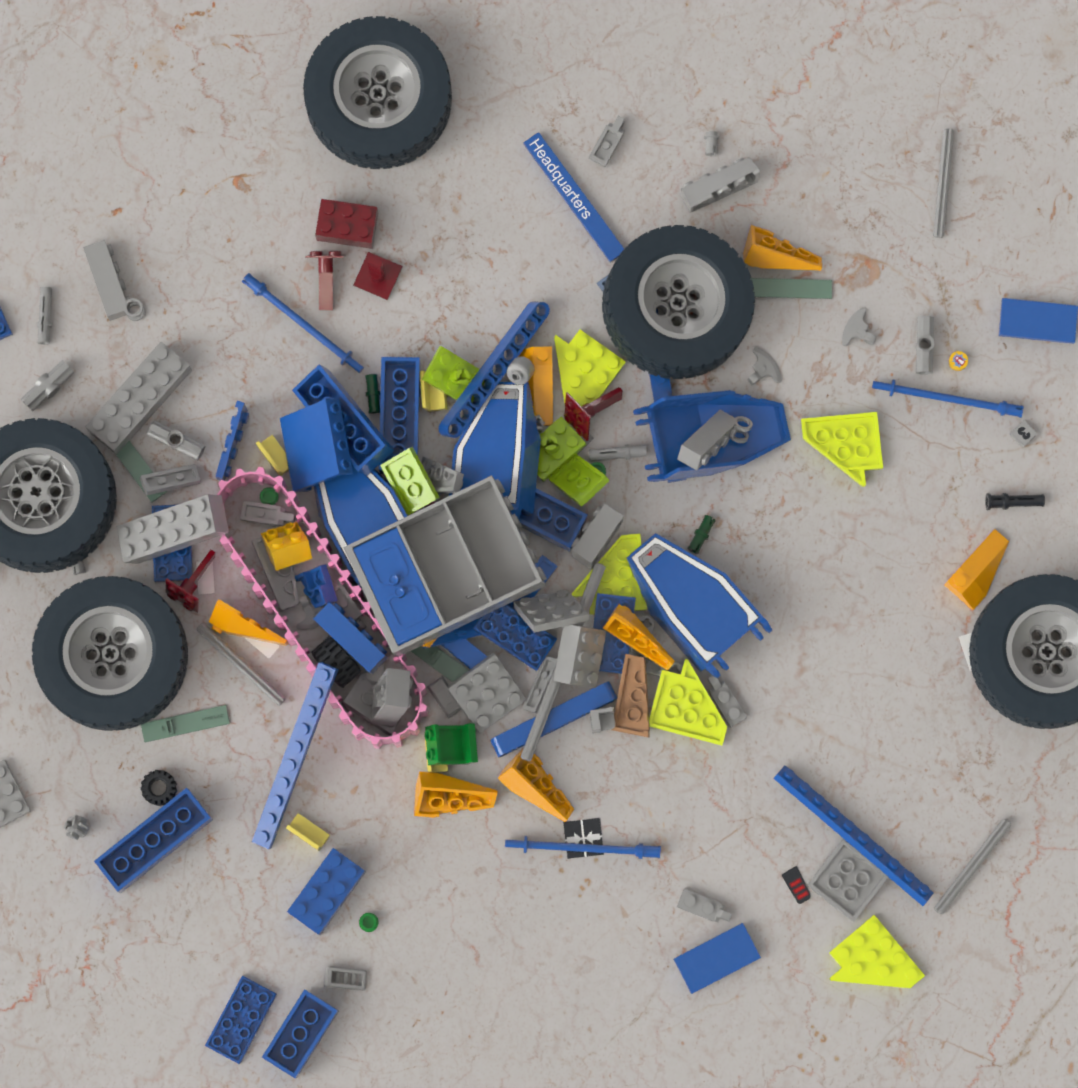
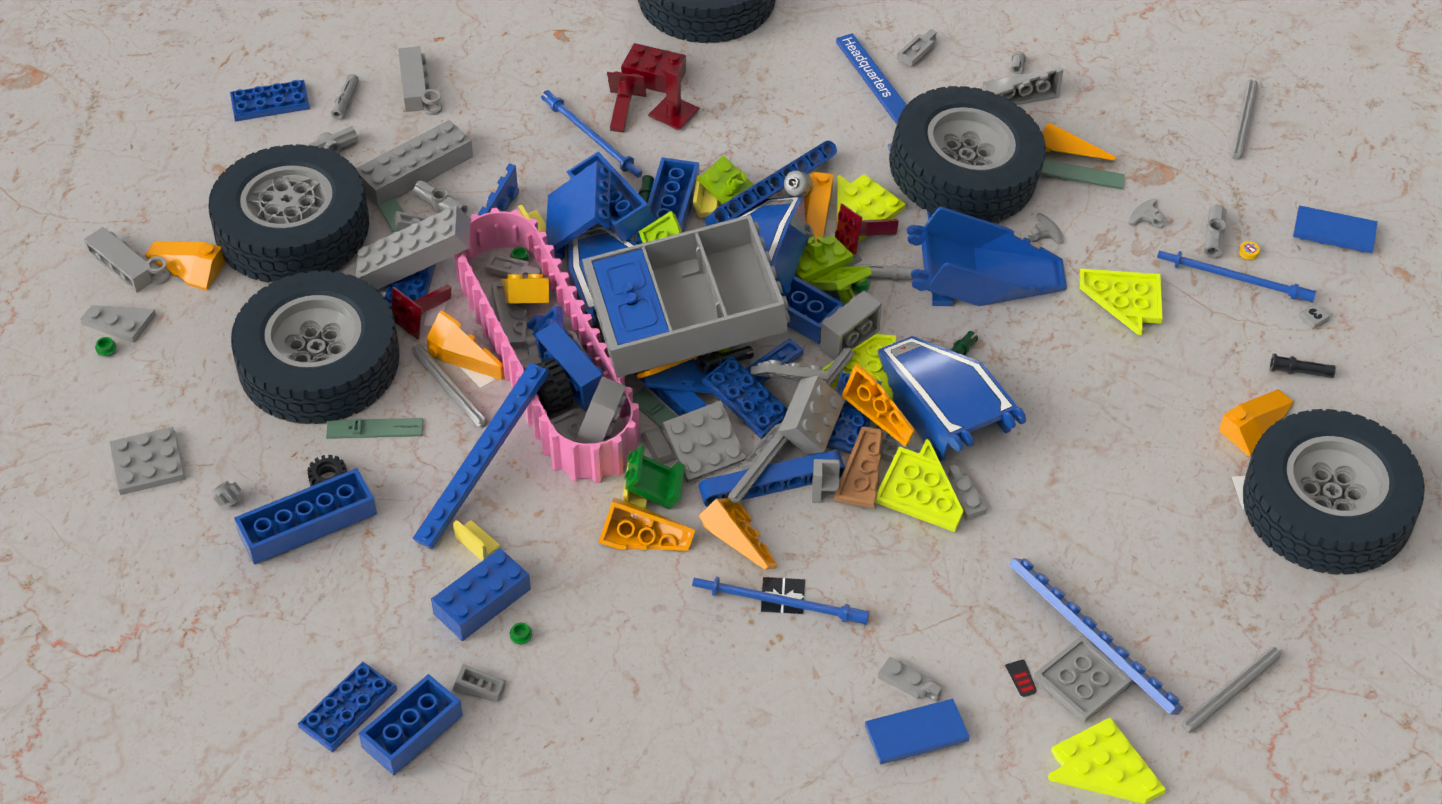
camera: 10 degrees right, 30 degrees down
(711, 437) = (984, 258): light grey hinge -> none

